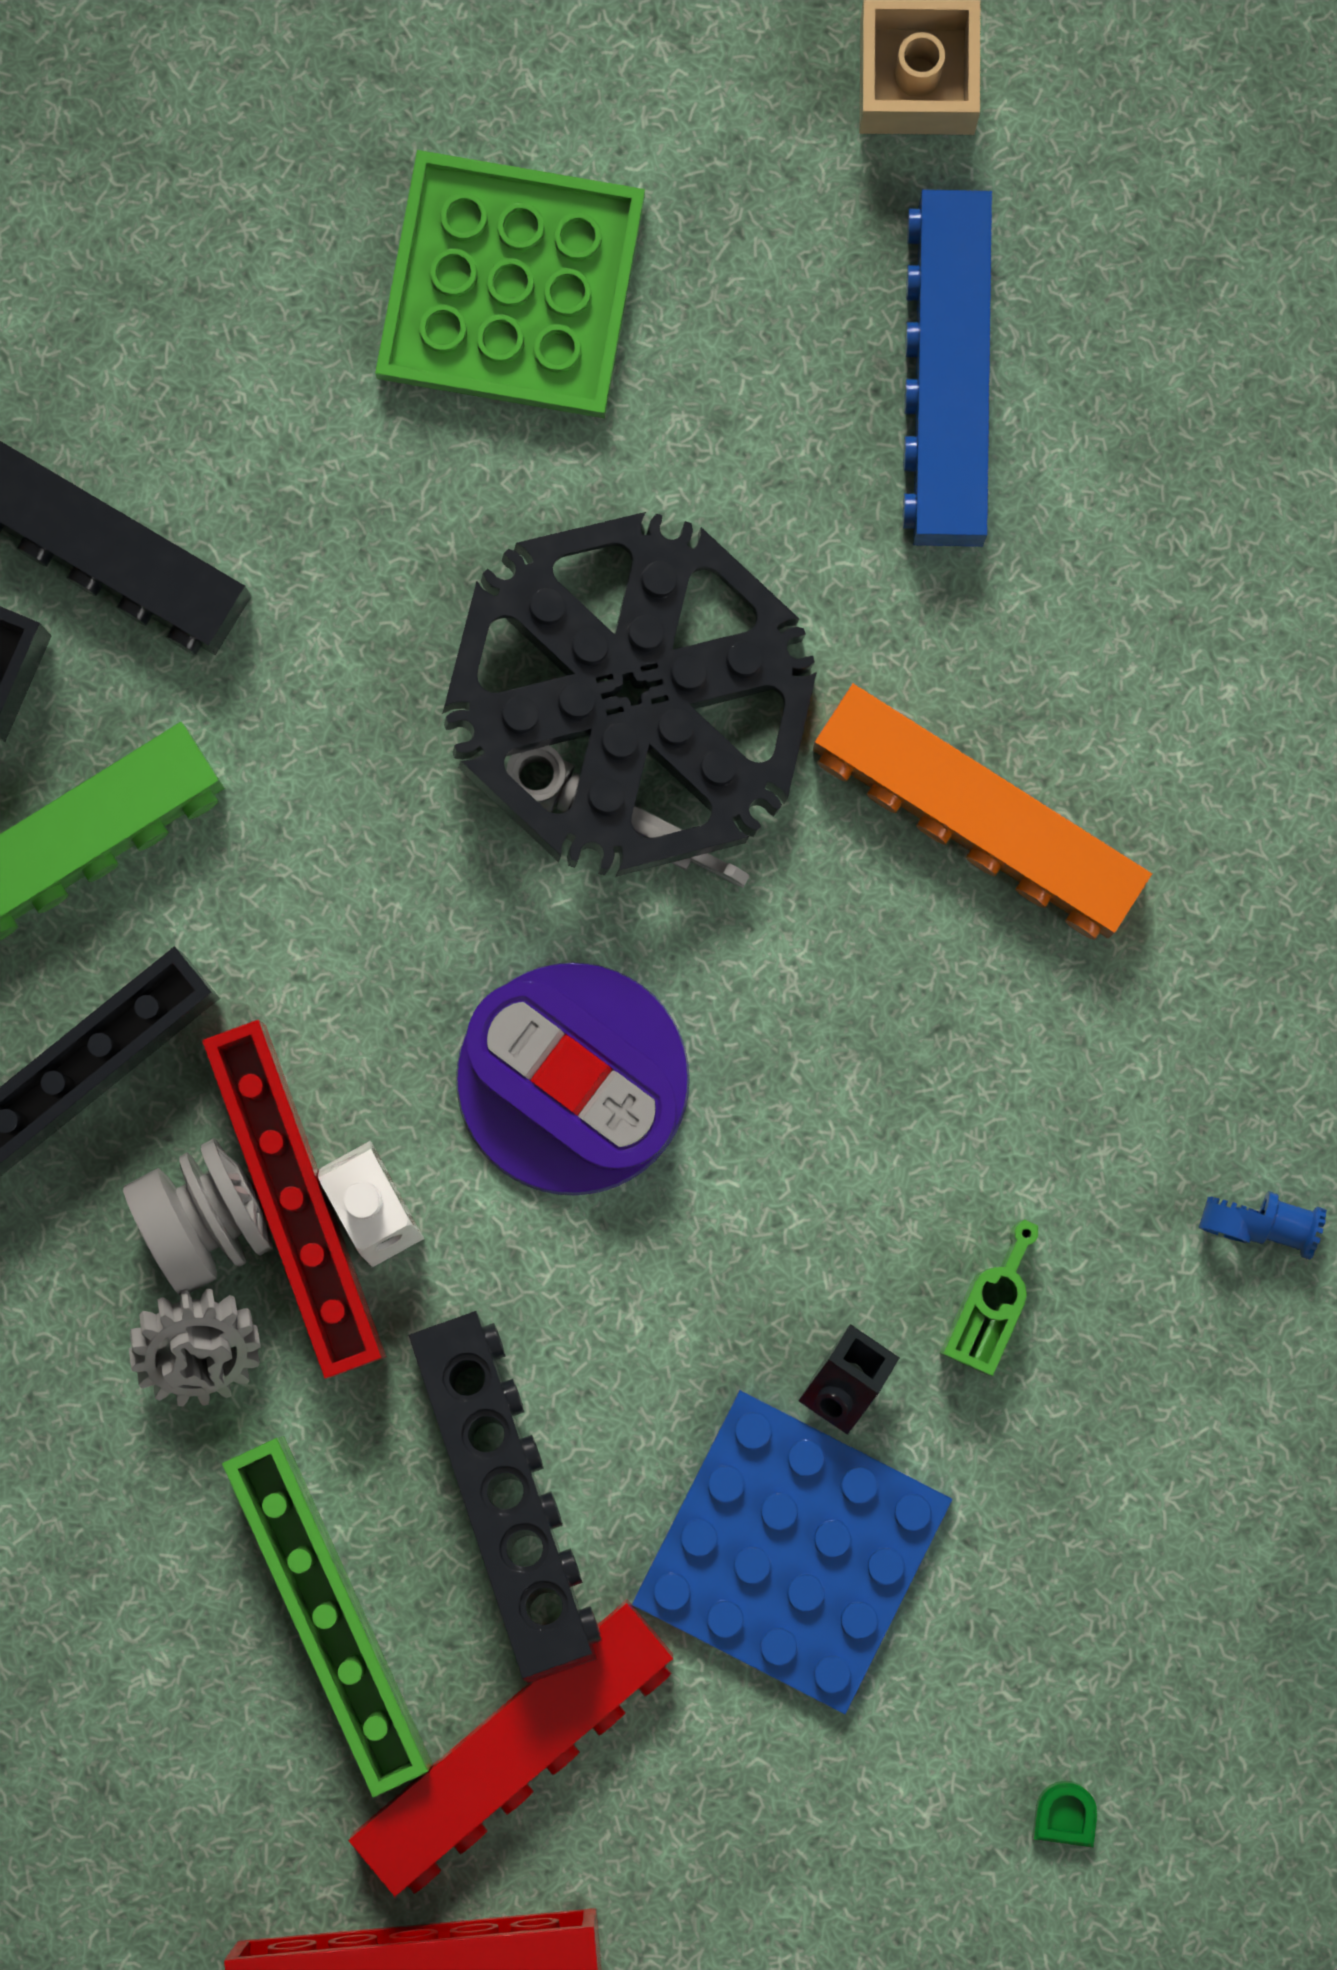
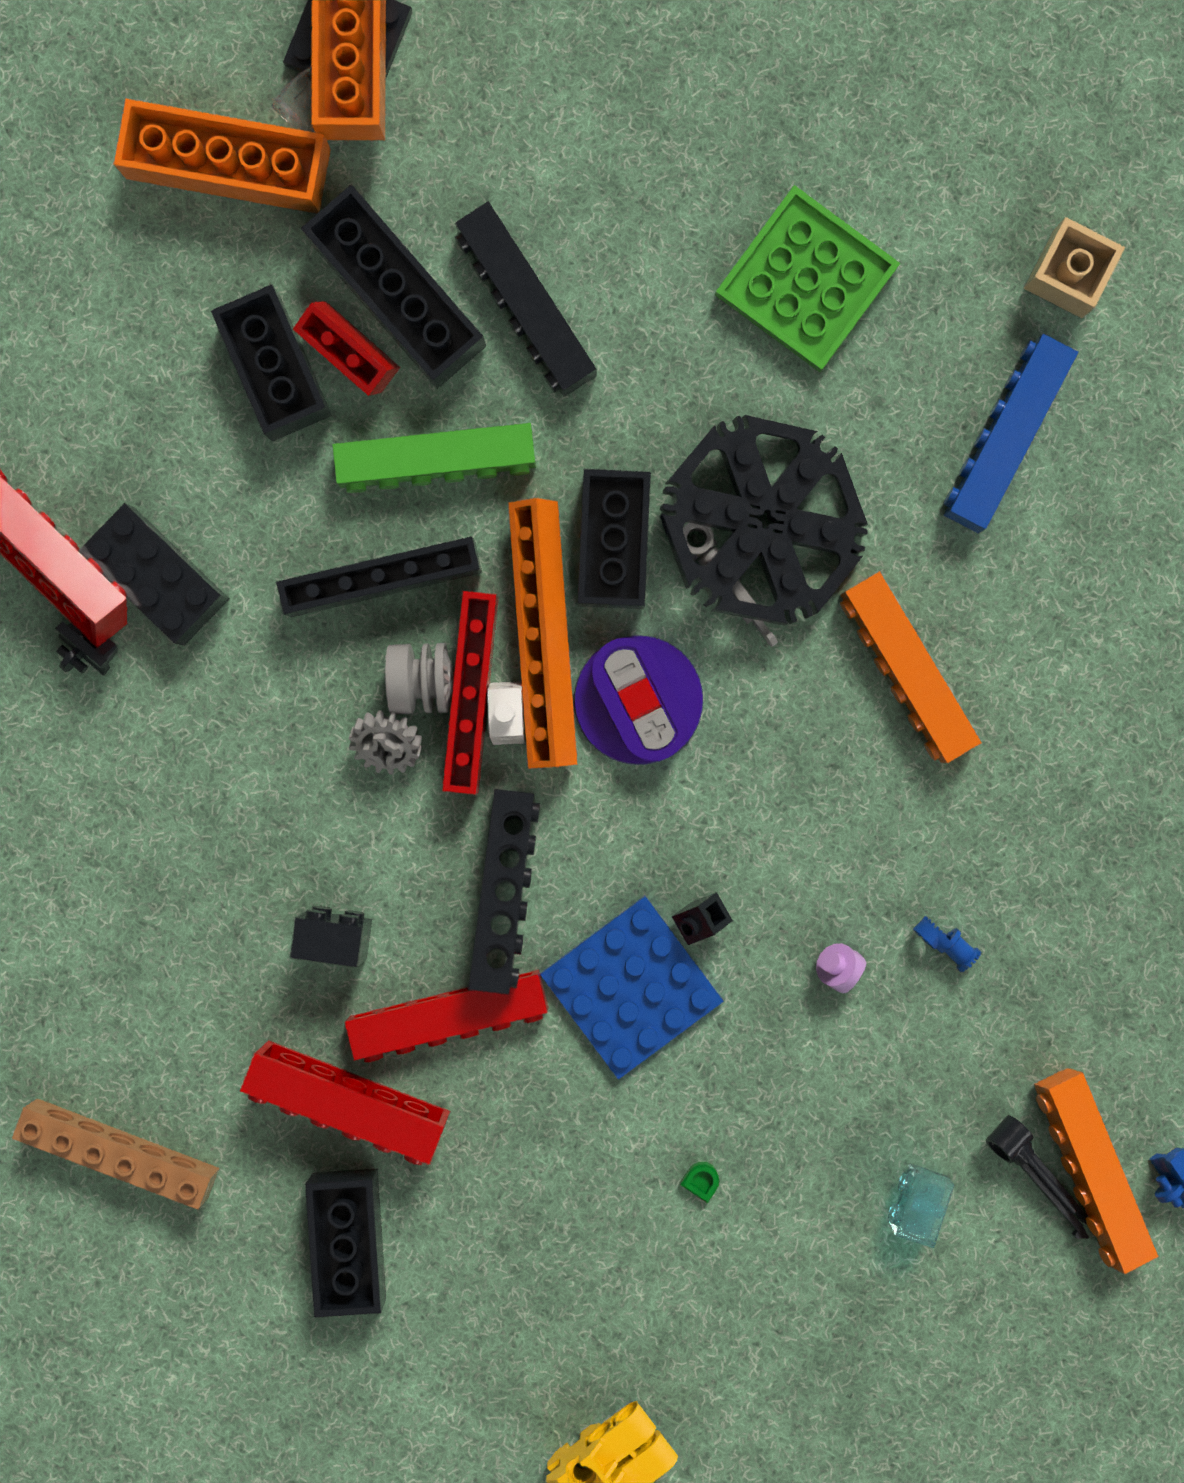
camera: 25 degrees right, 5 degrees up
(258, 1711) = (331, 937): none -> black brick
(328, 1616) = (387, 907): bright green brick -> none
(365, 1047) = (542, 633): none -> orange brick
(404, 840) = (614, 539): none -> black brick
(999, 1321) = (779, 929): bright green piece -> none
(1112, 1348) = (840, 967): none -> lavender piece

